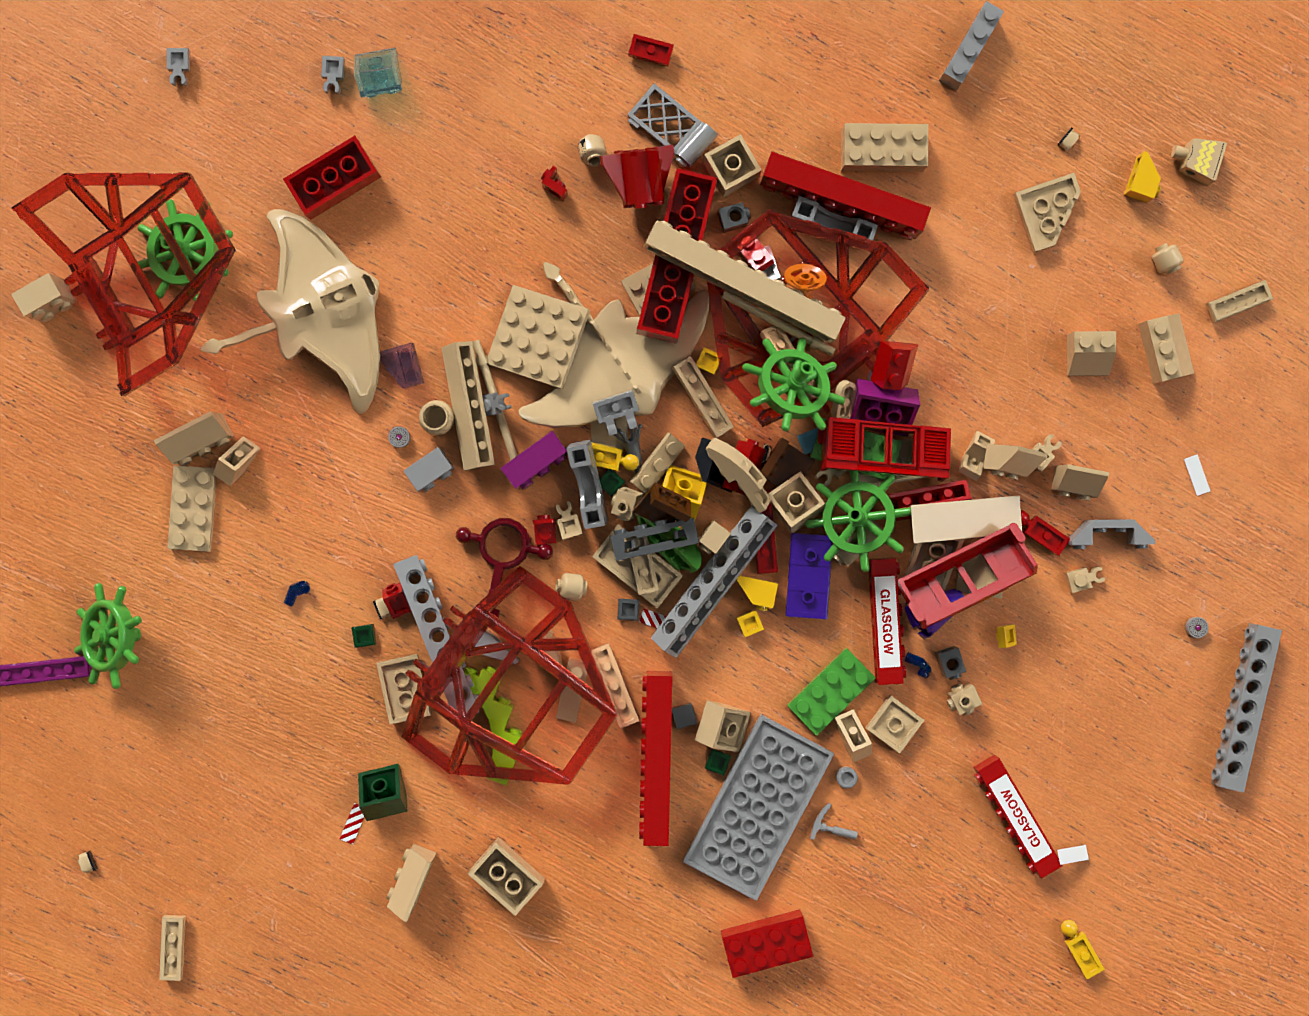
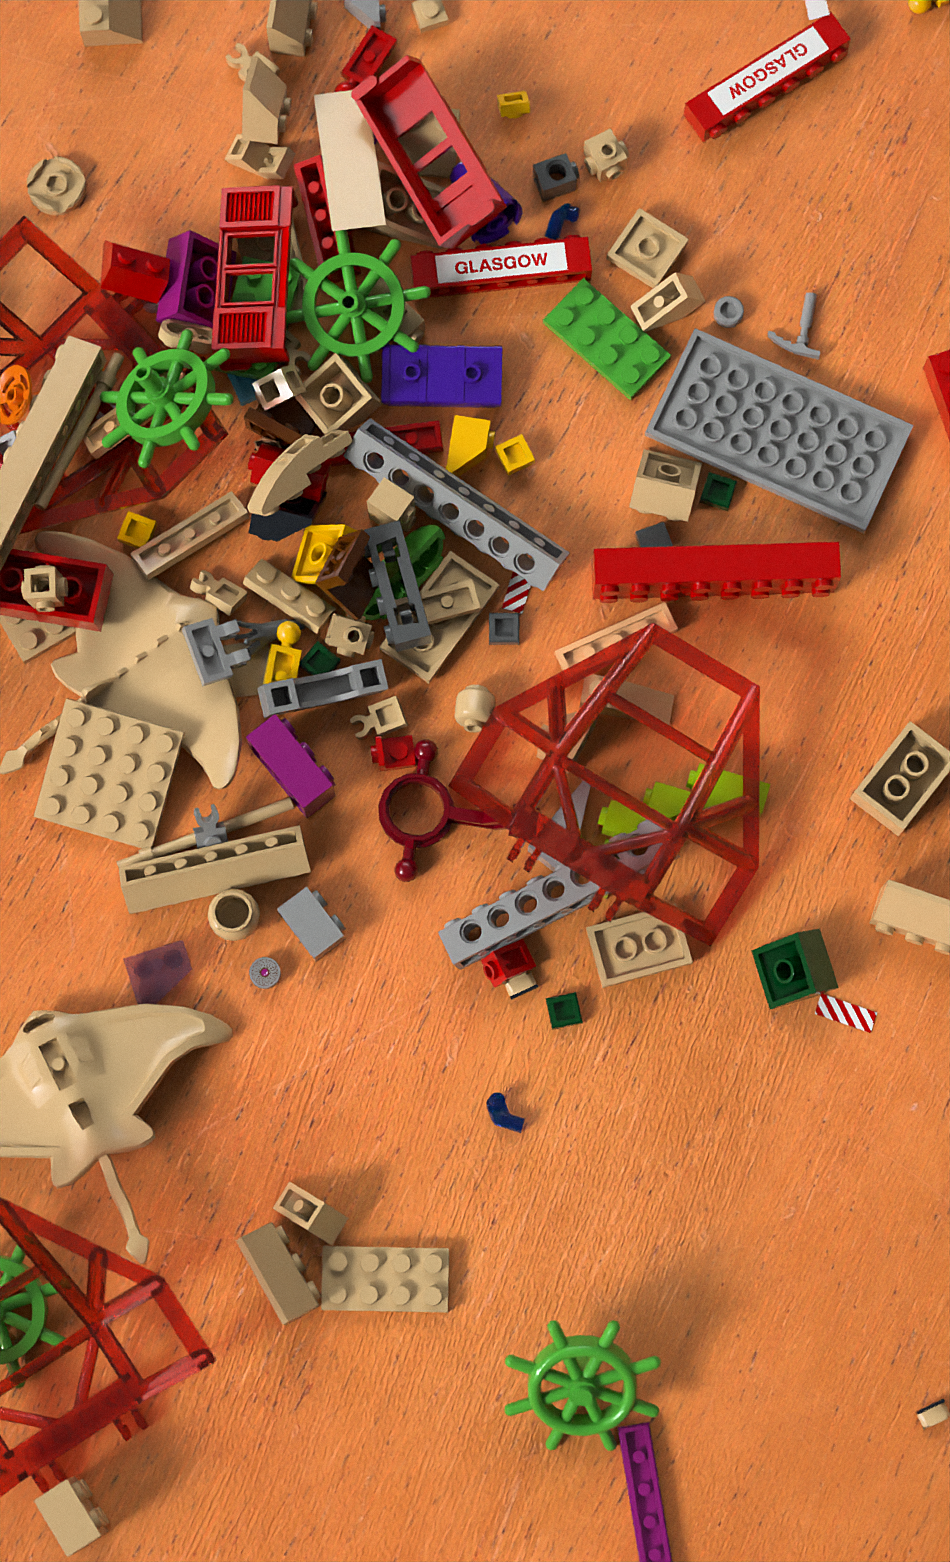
camera: 90 degrees left, 10 degrees down
(660, 417) = (221, 593): none -> tan plate
(661, 288) = (37, 581): none -> tan brick
(802, 462) = (278, 387): none -> tan brick
(963, 312) = (56, 186): none -> tan tile

